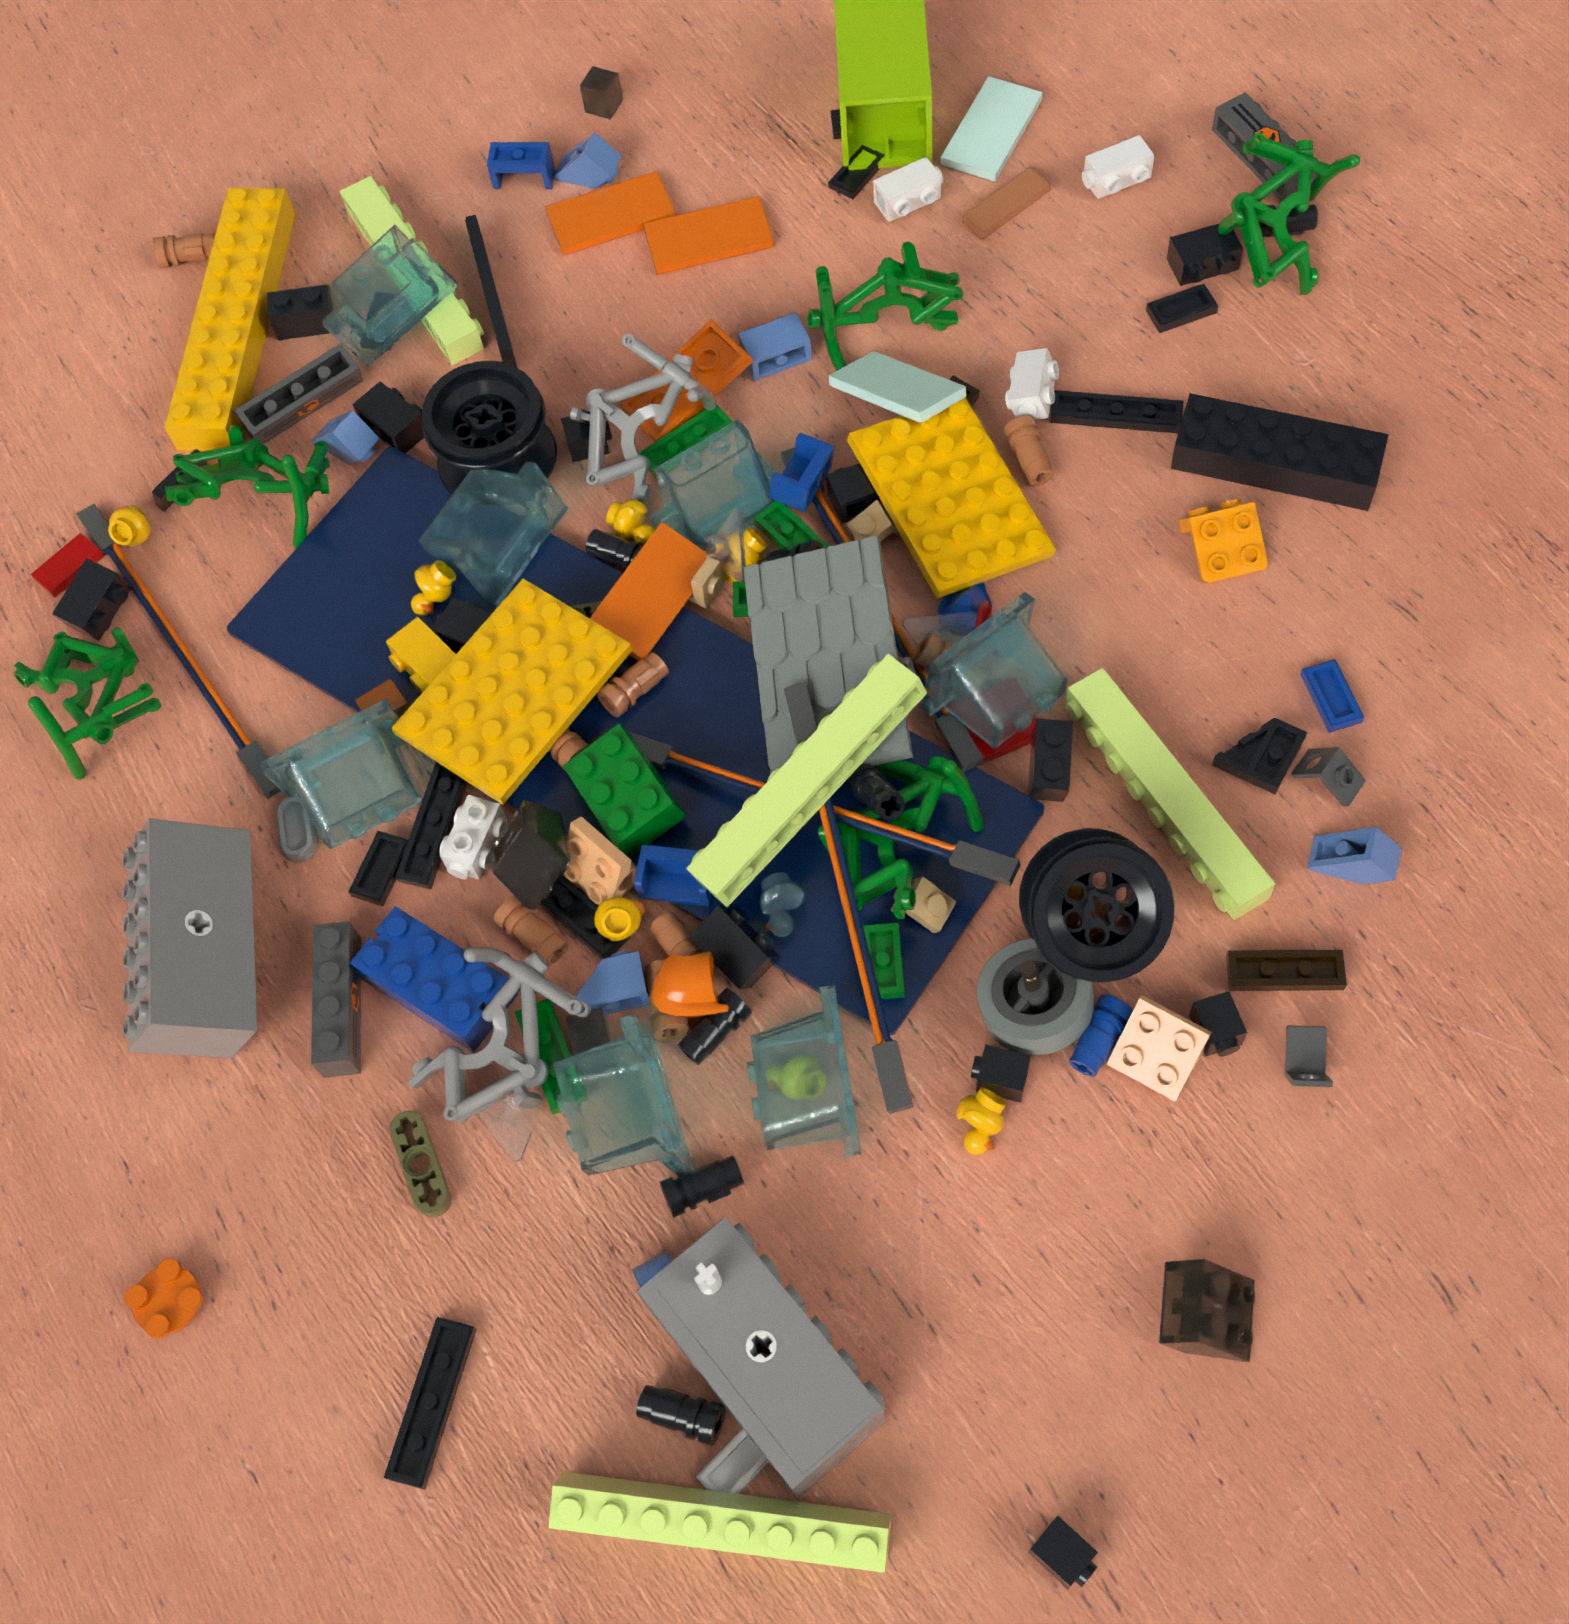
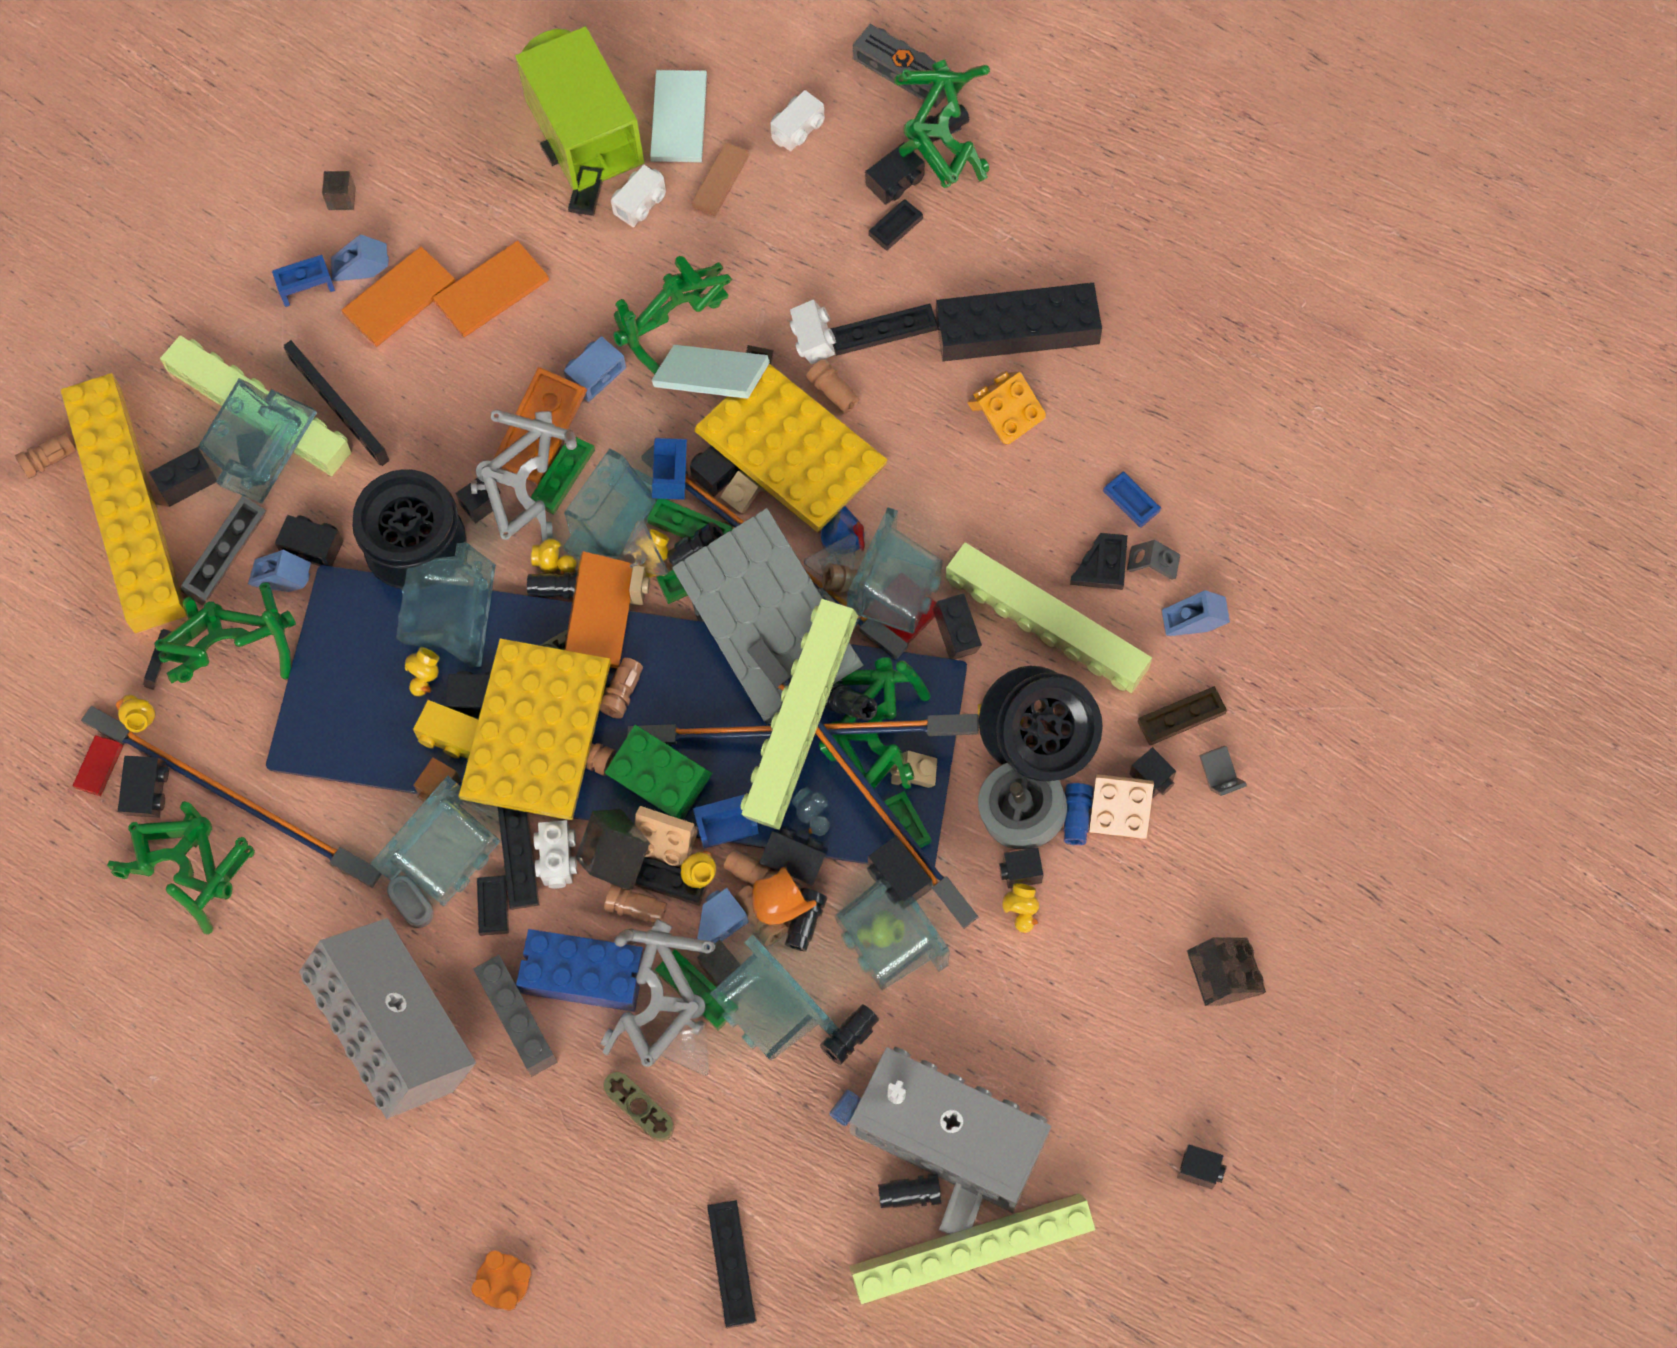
camera: 30 degrees left, 5 degrees up
(837, 1011) = (899, 873): none -> black brick

